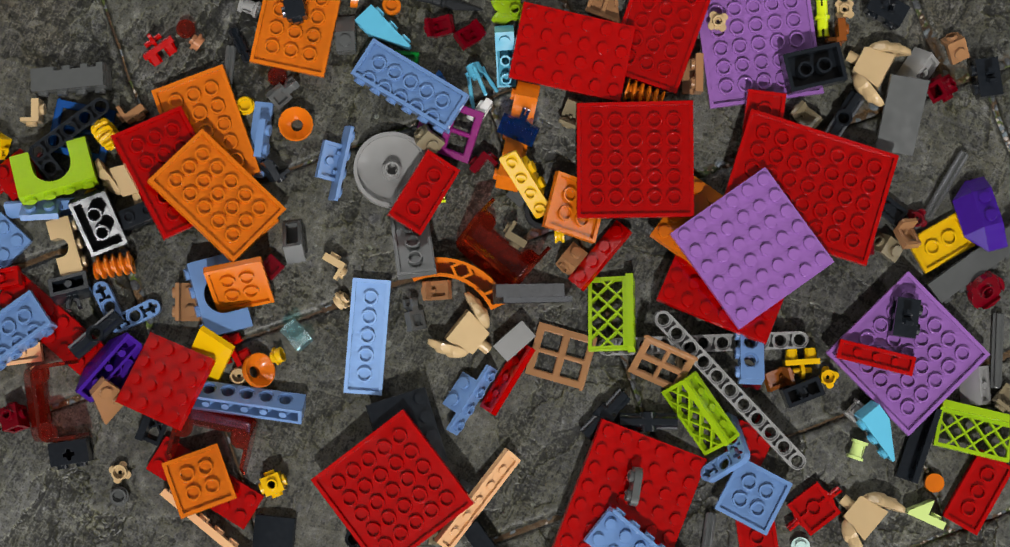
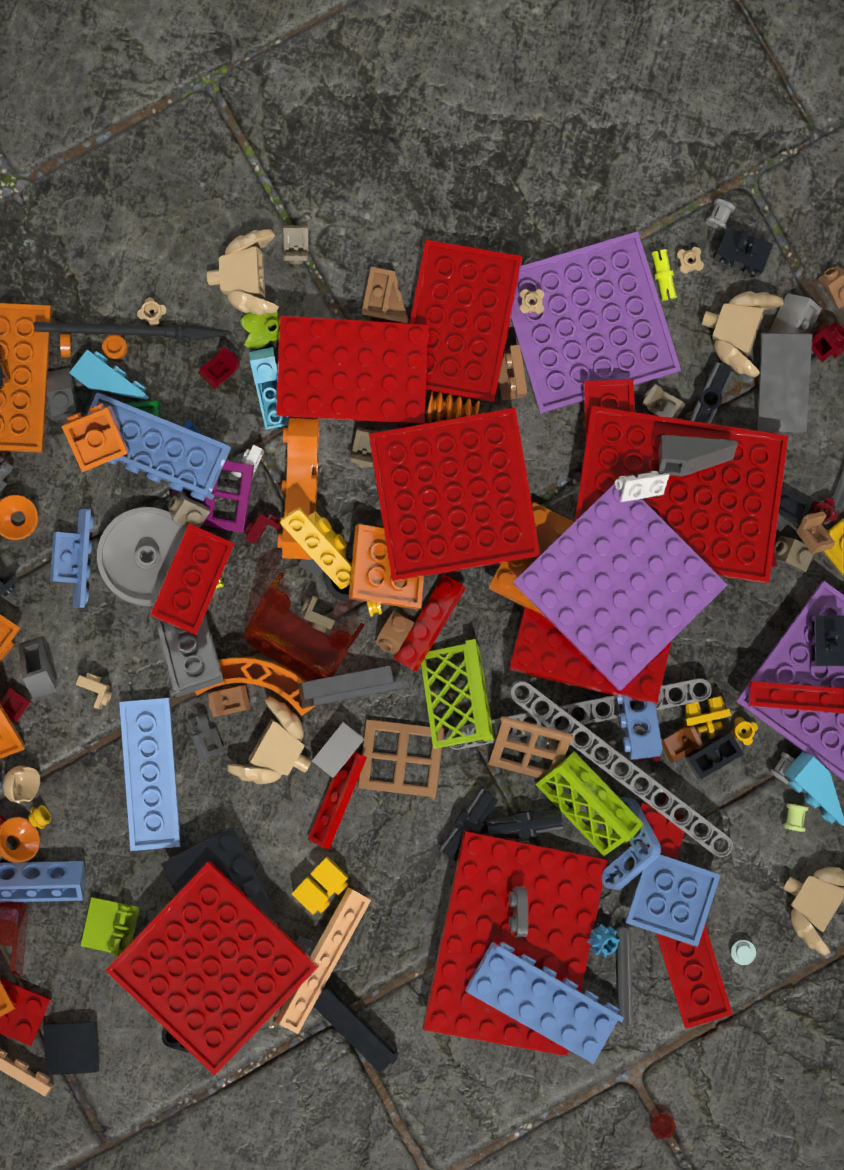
camera: 15 degrees left, 0 degrees up
(268, 328) = (21, 784): none -> tan hair
(280, 483) = (67, 978): yellow brick -> none
(296, 334) = (59, 786): clear light blue bracket -> none
(318, 447) = (109, 926): none -> lime hinge
(341, 300) = (110, 733): tan plate -> none
(367, 71) = (95, 437): none -> orange plate
(439, 26) = (179, 363): dark red bracket -> none
(466, 395) = (287, 830): medium blue bracket -> none
(476, 72) = (235, 414): medium azure plant -> none
(476, 448) = (312, 895): none -> yellow piece
(518, 128) = (300, 477): clear blue plate -> none
(694, 520) = (603, 940): none -> dark azure gear
(780, 176) = (643, 486): none -> white hinge
(813, 68) = (662, 342): black brick -> none
(813, 508) = (752, 901): red plate -> none
(818, 157) = (689, 455): none -> dark grey slope
(841, 32) = (691, 287): dark orange bracket -> none

